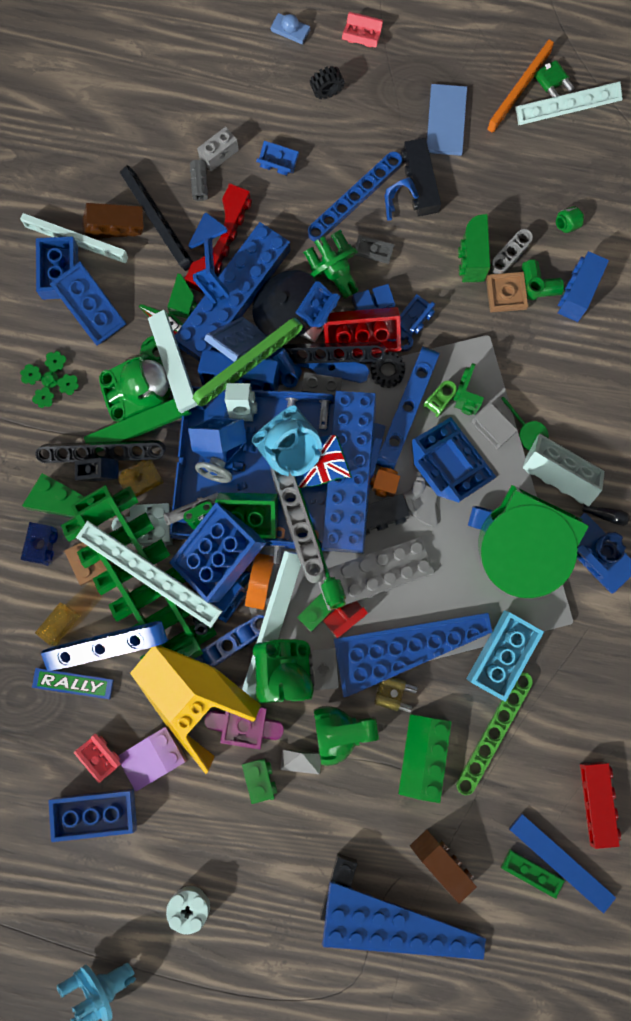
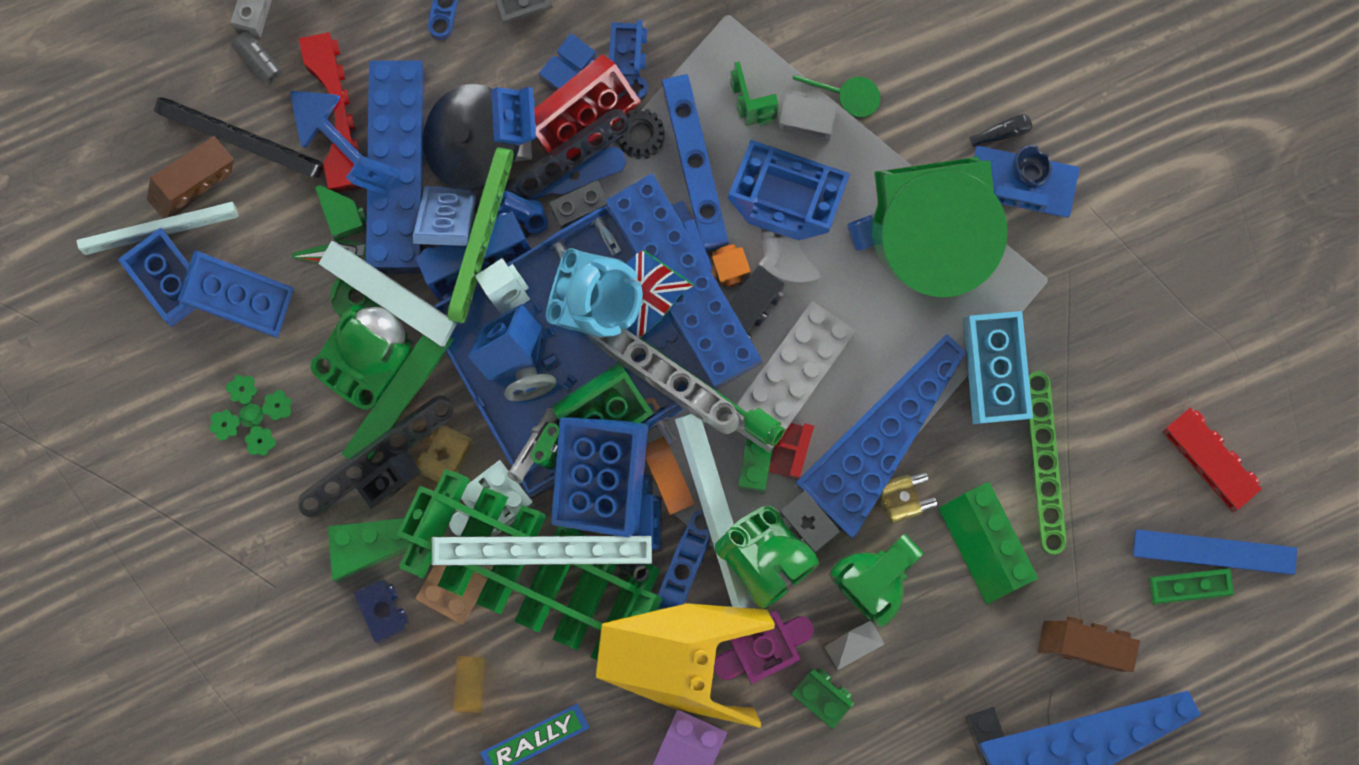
camera: 35 degrees left, 0 degrees up
(115, 644) = (555, 654): beam -> none
(334, 263) = (494, 53): green piece -> none
(438, 400) = (724, 130): bright green piece -> none
(564, 470) = (920, 113): light aqua slope -> none

